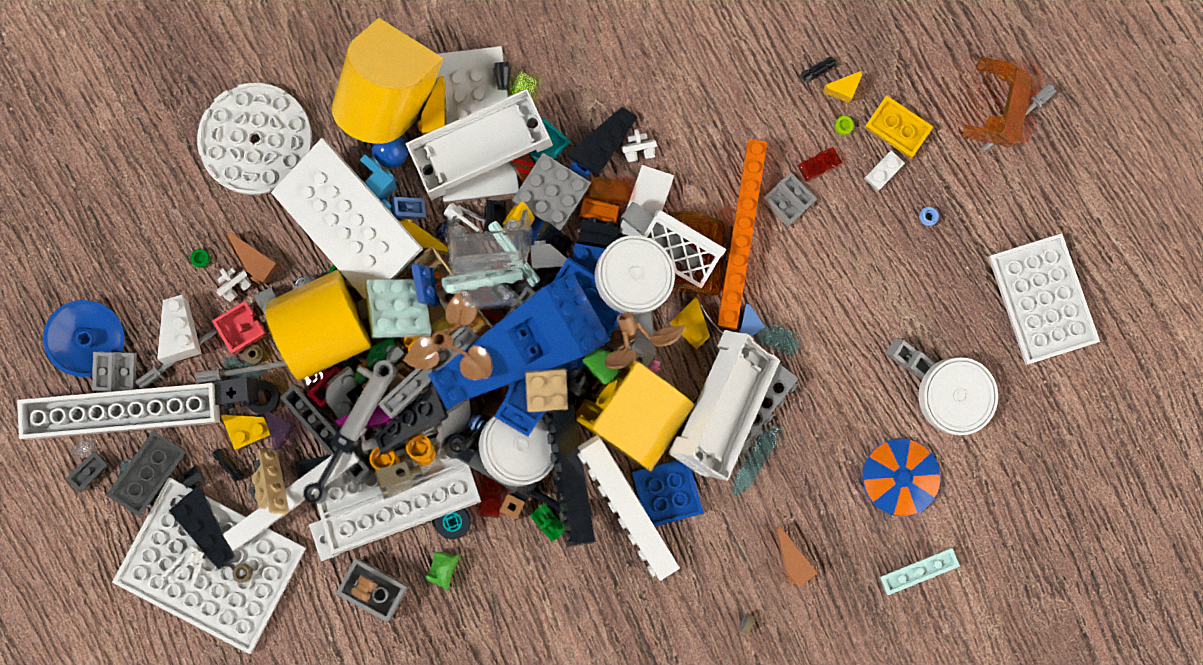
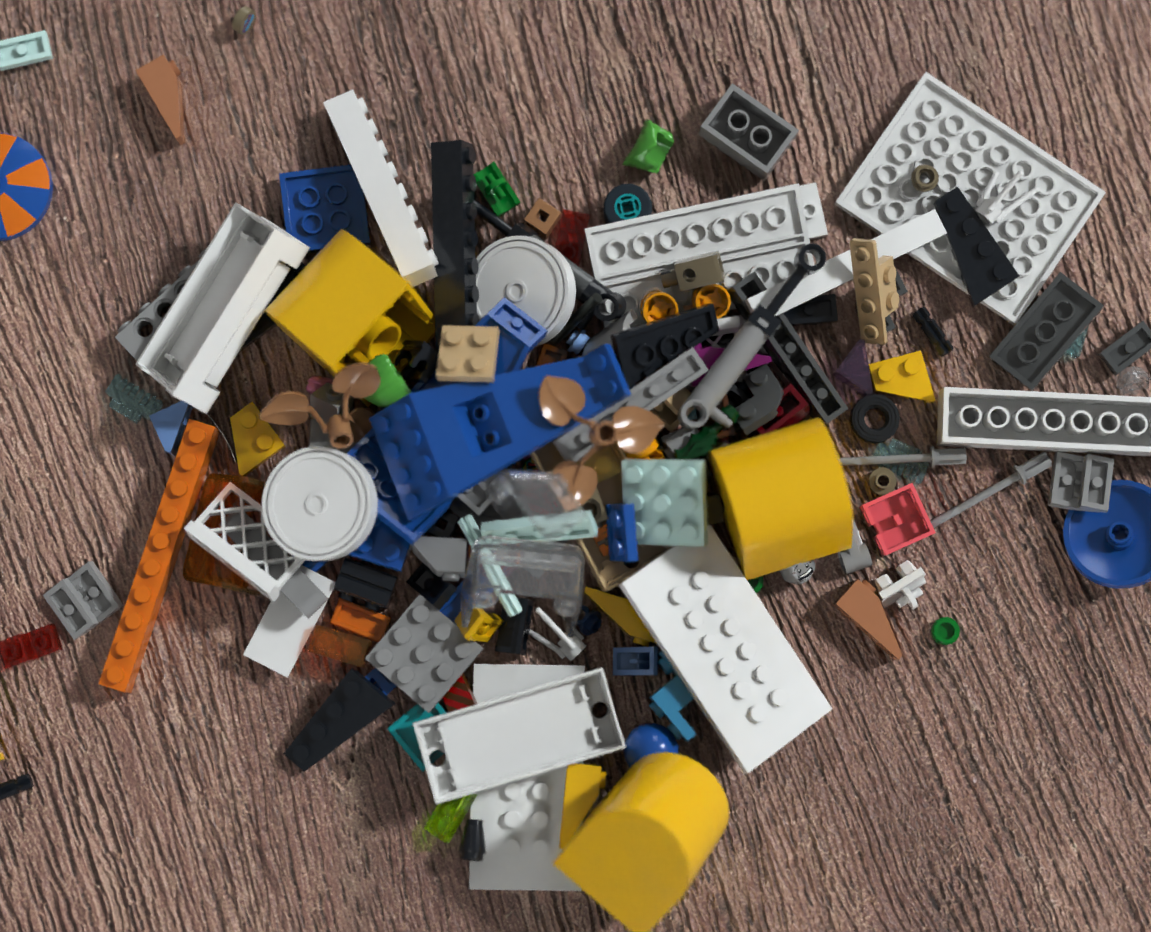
camera: 175 degrees left, 0 degrees up
(177, 331) = (985, 525): white wedge -> none
(191, 476) = (983, 320): black tile -> none
(227, 131) = (890, 807): white plate -> none
(236, 391) = (909, 427): black brick -> none
(364, 587) = (758, 128): medium nougat wheel -> none
(647, 146) = (288, 711): white hips -> none
(755, 460) = (195, 238): clear light blue piece -> none

